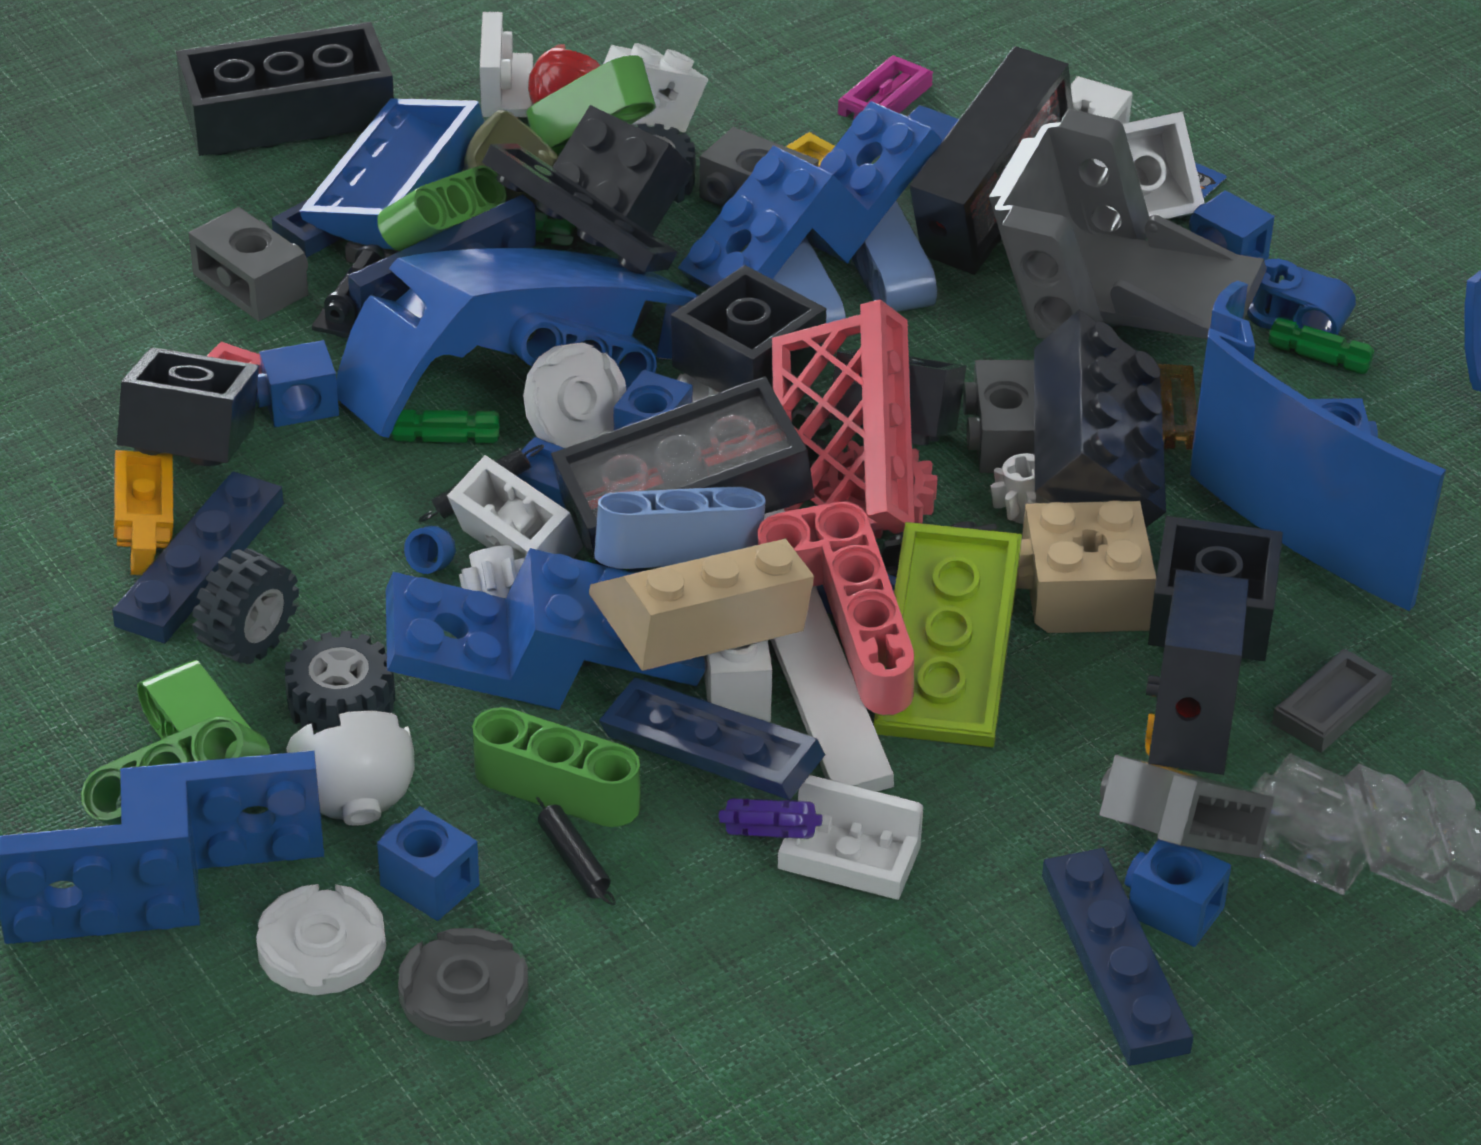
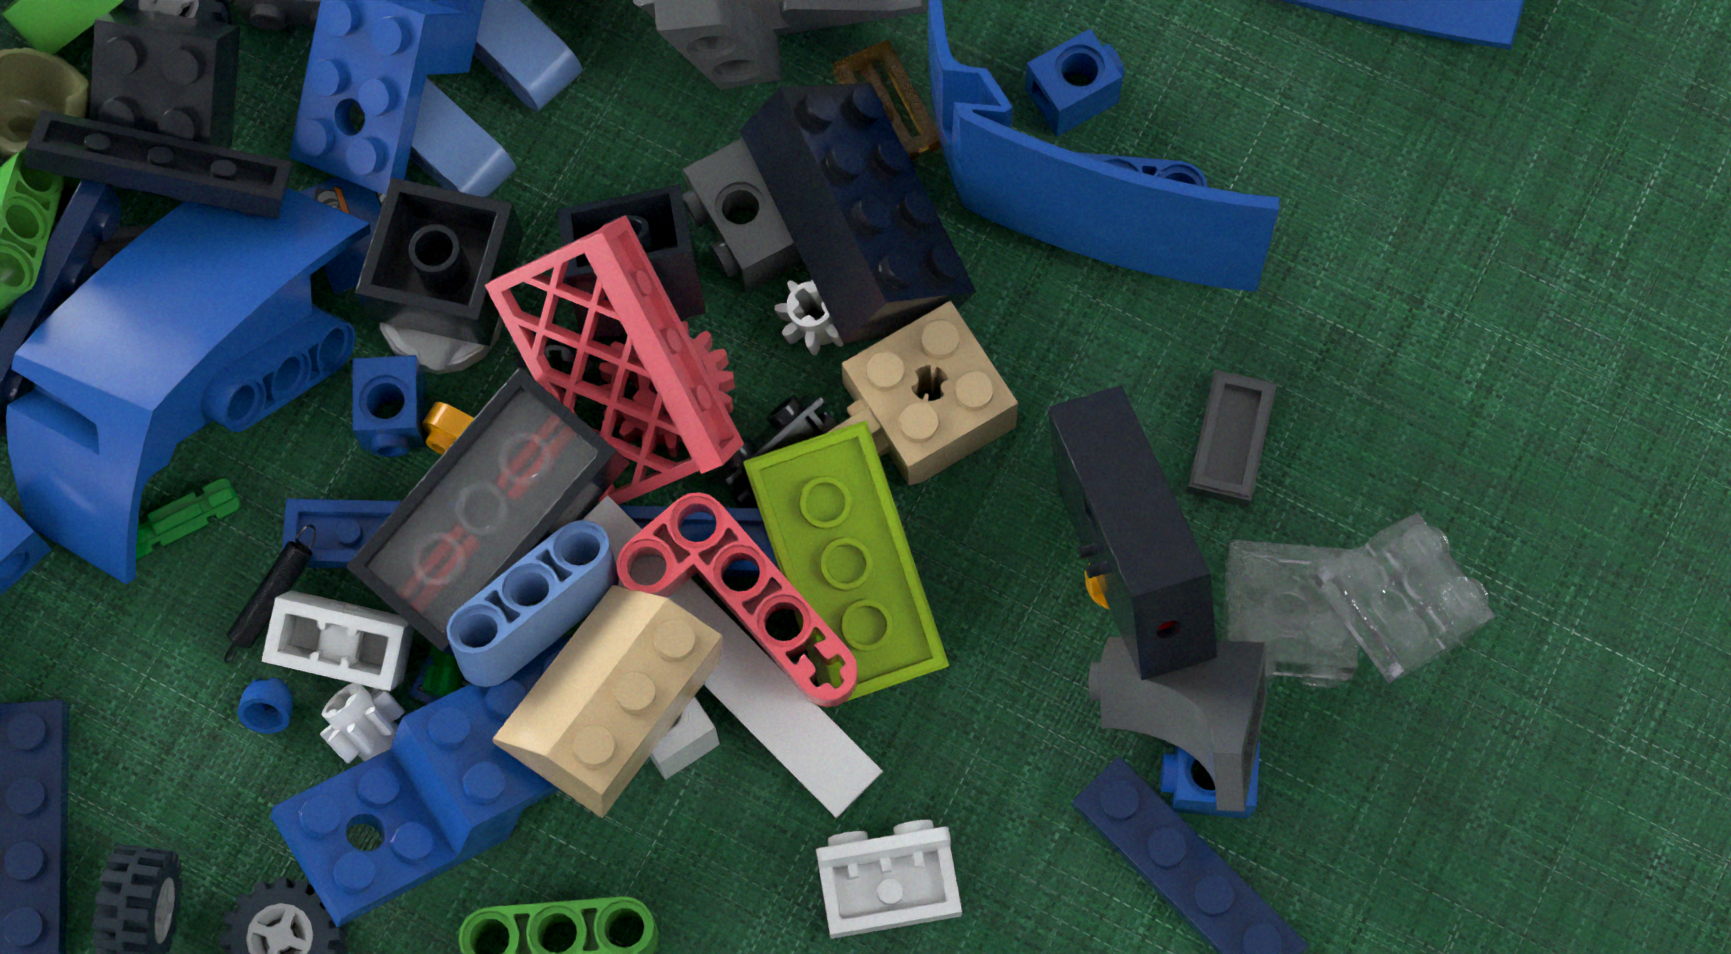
camera: 25 degrees left, 30 degrees up
(572, 394) = (303, 434): white tile -> none
(713, 738) = (703, 837): dark blue plate -> none
(770, 818) = (803, 901): dark purple axle -> none
(1221, 552) = (1064, 353): black brick -> none

